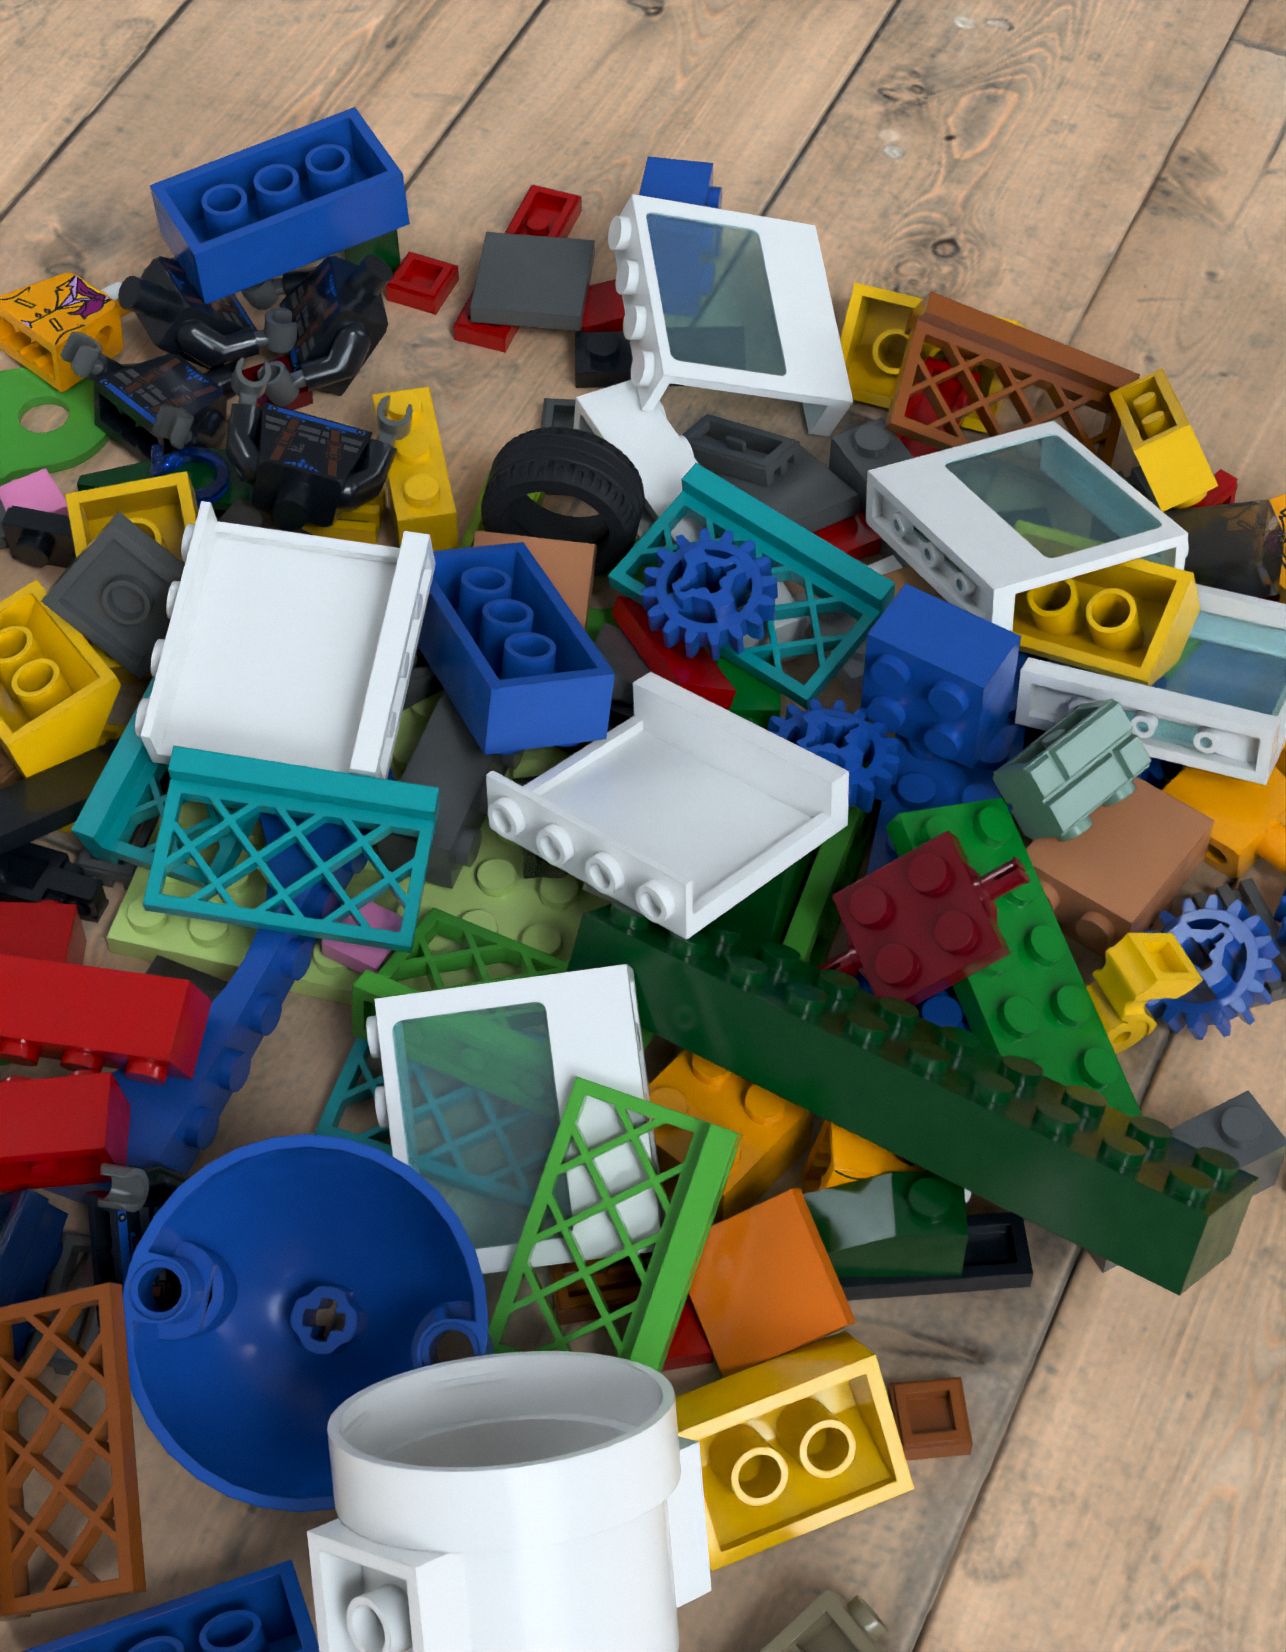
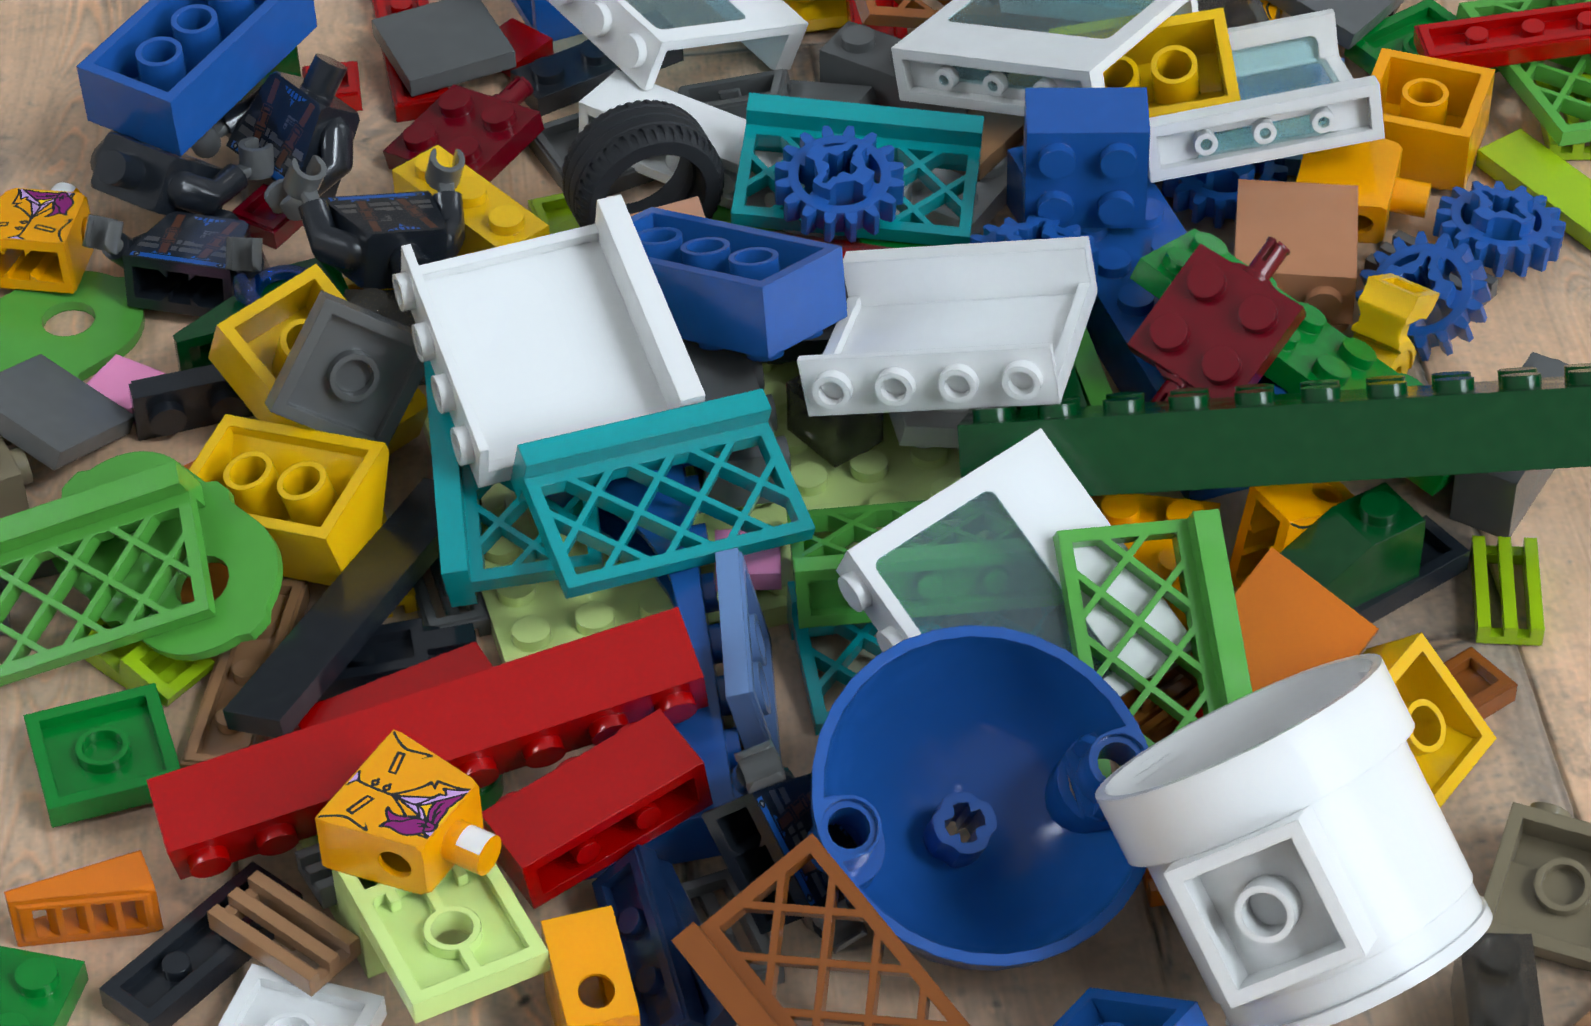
camera: 30 degrees left, 10 degrees down
(273, 1047) = (746, 653): none -> medium blue tile
(488, 383) = (482, 126): none -> dark red plate
(1073, 771) = (1238, 183): sand green brick -> none
(1077, 1287) = (1505, 556): none -> lime tile

